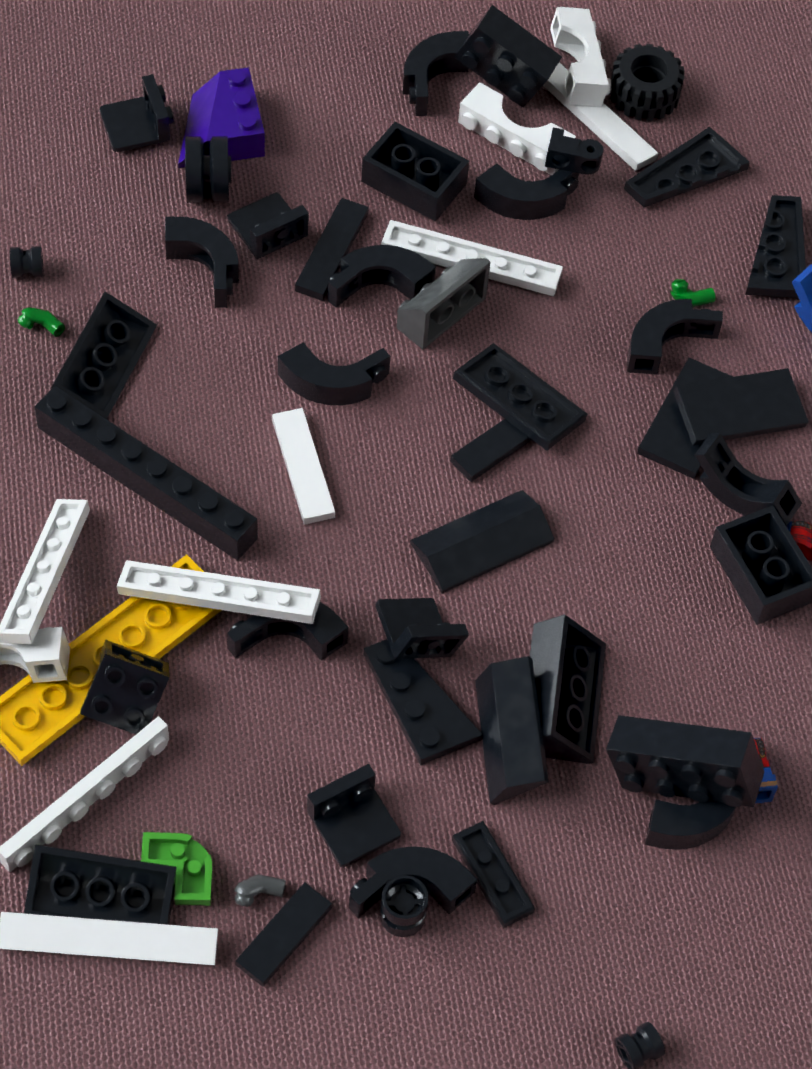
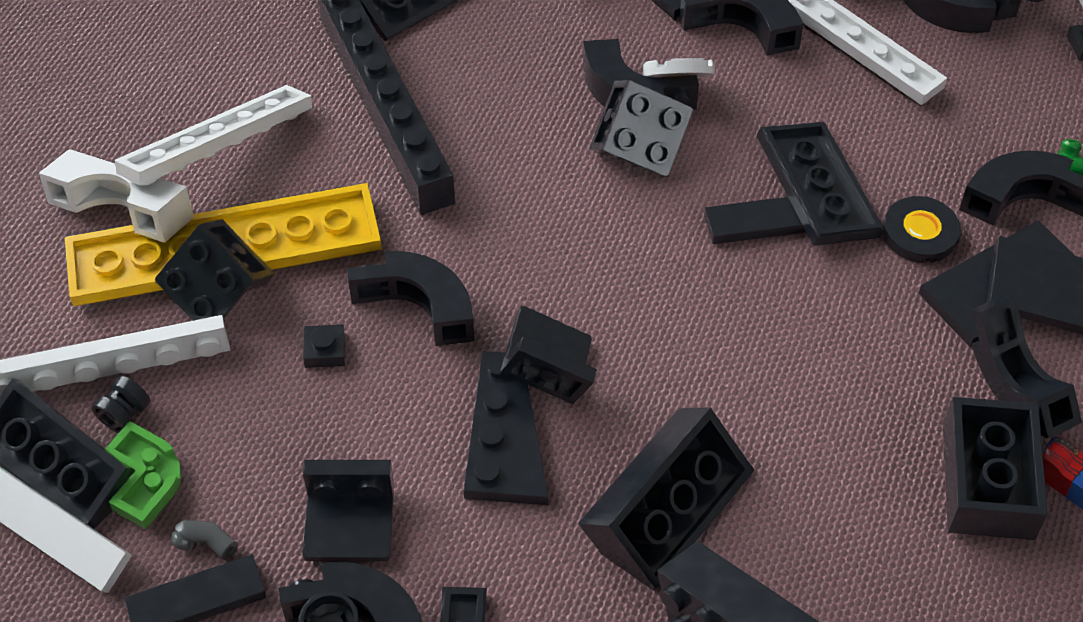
camera: 35 degrees right, 5 degrees down
(125, 823) = (121, 404): none -> black wheel
(219, 592) = (366, 226): white plate -> none
(241, 701) = (324, 346): none -> black plate
(303, 466) = (545, 156): white tile -> none
(365, 348) = (680, 67): none -> white tile
(366, 411) = (641, 127): none -> bracket
(444, 301) = (794, 62): dark grey slope -> none
(483, 540) = (687, 306): black slope -> none
(511, 729) = (578, 504): black slope -> none
(611, 401) = (921, 229): none -> black tile

